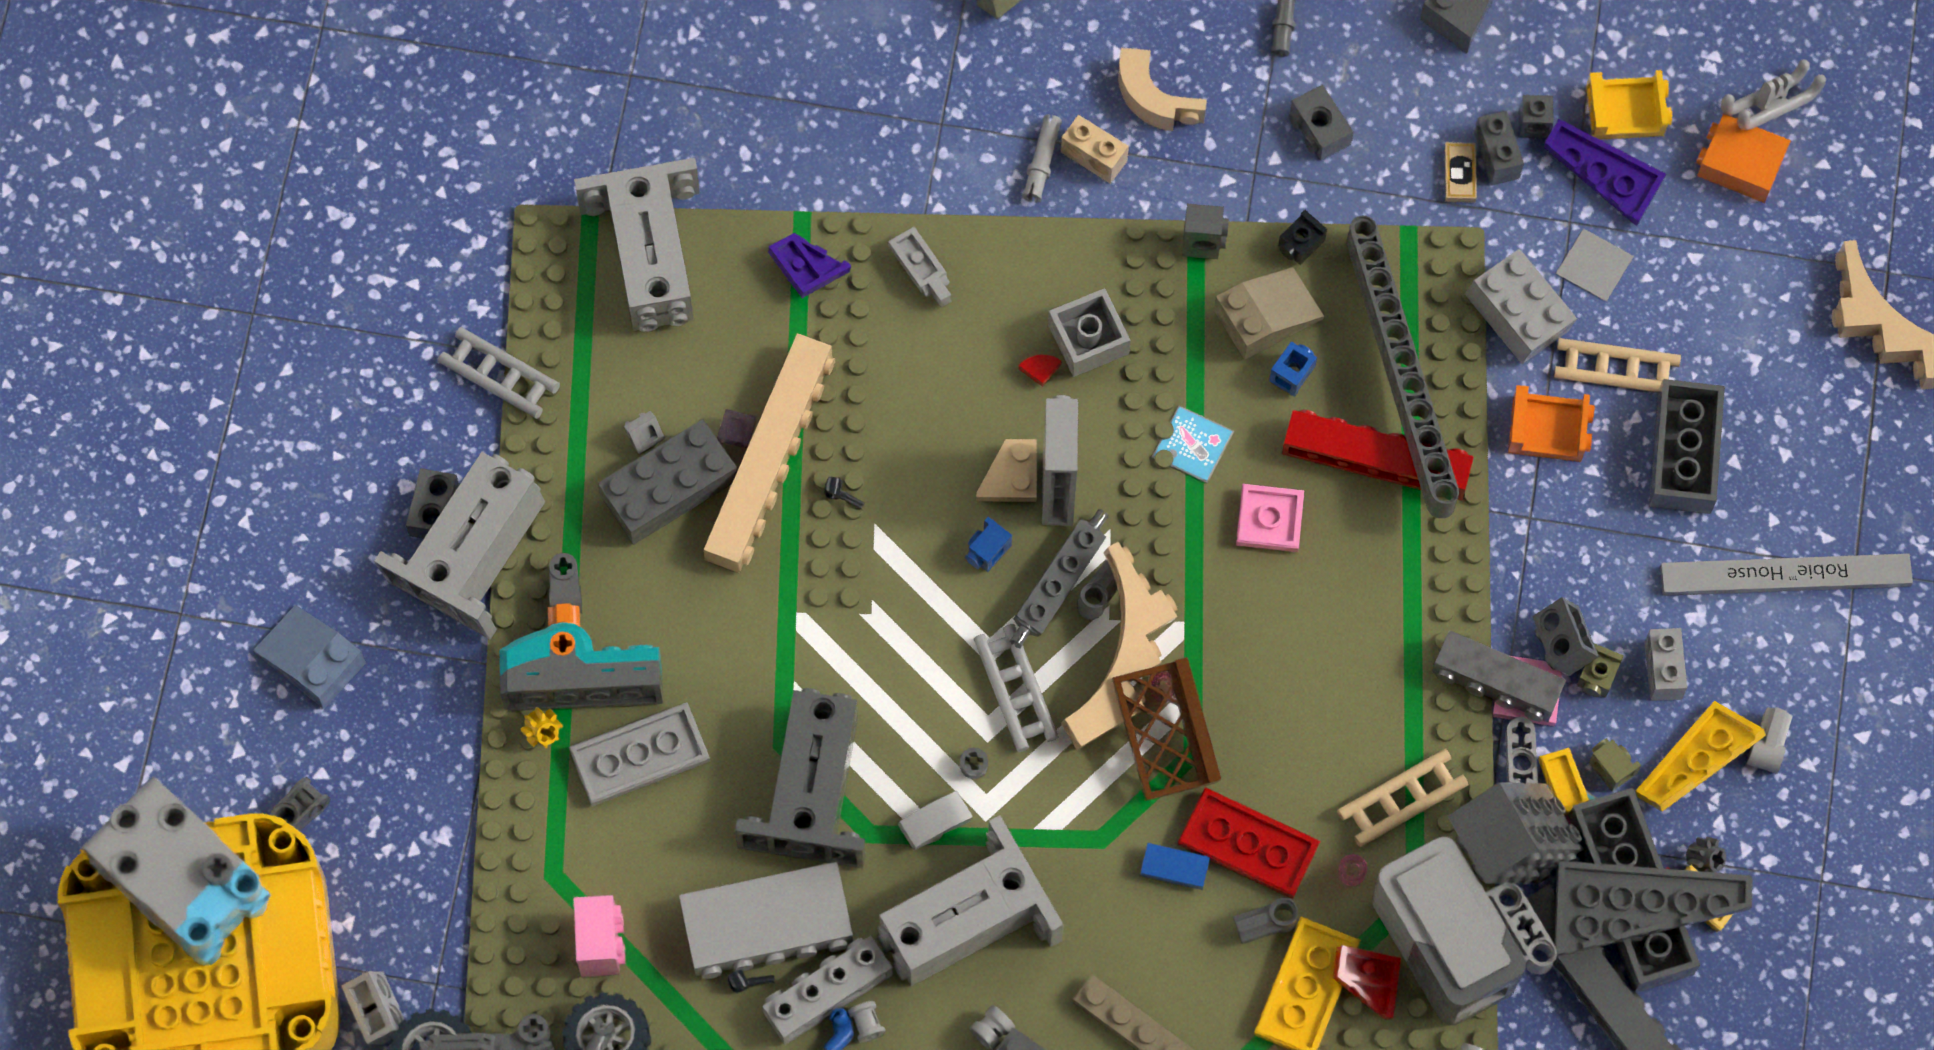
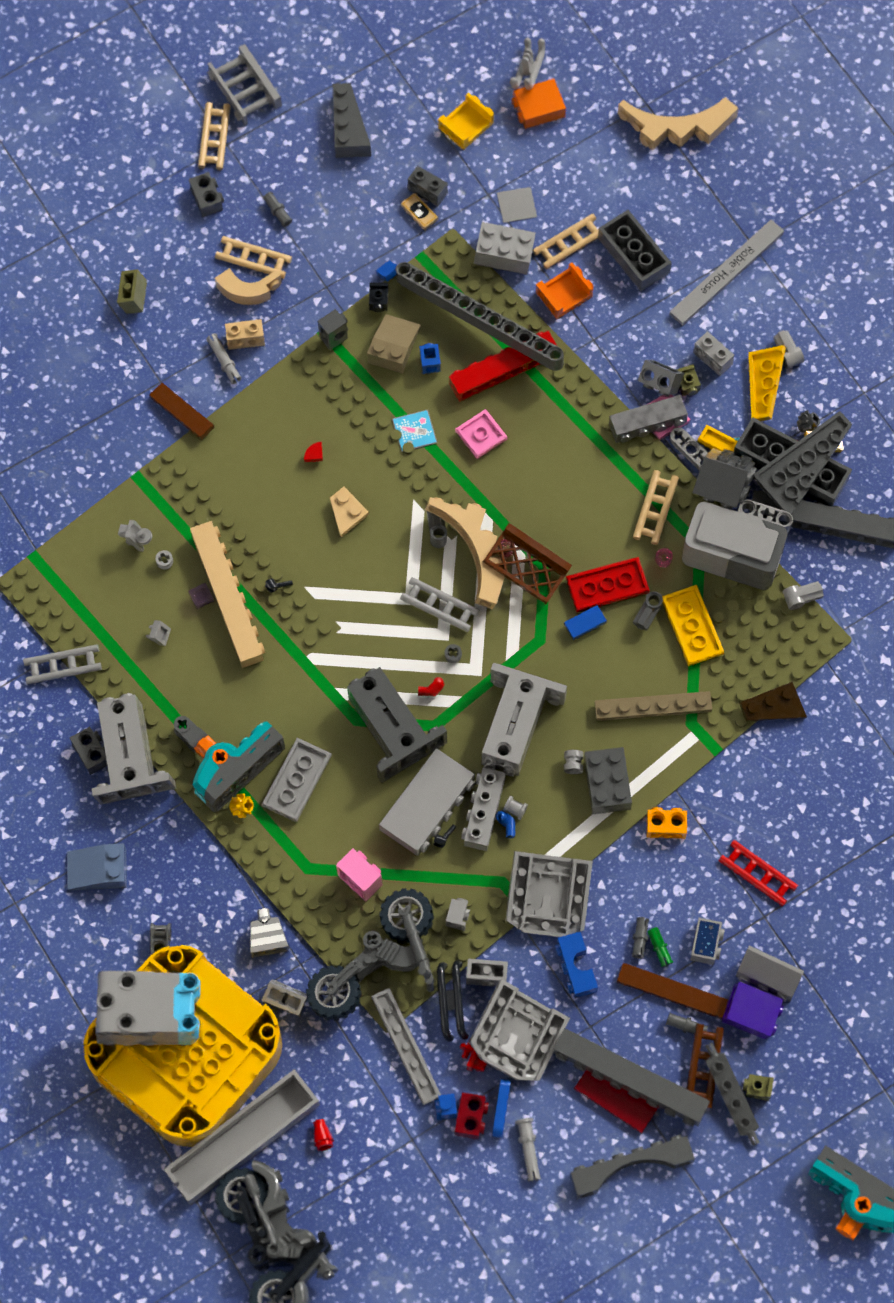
camera: 40 degrees left, 0 degrees up
(226, 875) = (178, 985): dark grey bush -> none
(426, 913) = (267, 935): none -> light grey torso
(647, 236) = (77, 543): light grey brick -> none
(668, 481) = (193, 646): dark grey brick -> none
(724, 286) = (135, 535): none -> light grey hips
(740, 355) = (168, 556): none -> light grey bush
(806, 264) = (161, 495): dark purple wing -> none
(907, 786) = (433, 689): none -> red arm
(921, 265) = (216, 451): light grey hinge -> none
(929, 181) = (181, 411): none -> reddish brown tile
(934, 820) = (460, 693): light grey slope -> none
(988, 546) = (367, 551): blue brick -> none
(1059, 460) = (372, 482): light grey brick -> none
(1059, 578) = (413, 539): dark grey plate -> none
(1089, 332) = (323, 417): light grey brick -> none
(1200, 44) = (247, 248): none -> tan bar
(1319, 106) = (330, 232): dark grey brick -> none
(1345, 212) = (387, 271): none -> blue tile
(1369, 977) = (716, 597): red wing -> none
(1535, 116) = (431, 158): dark grey brick -> none
(1609, 171) = (485, 157): dark purple wing -> none
(1613, 763) = (731, 416): olive brick -> none

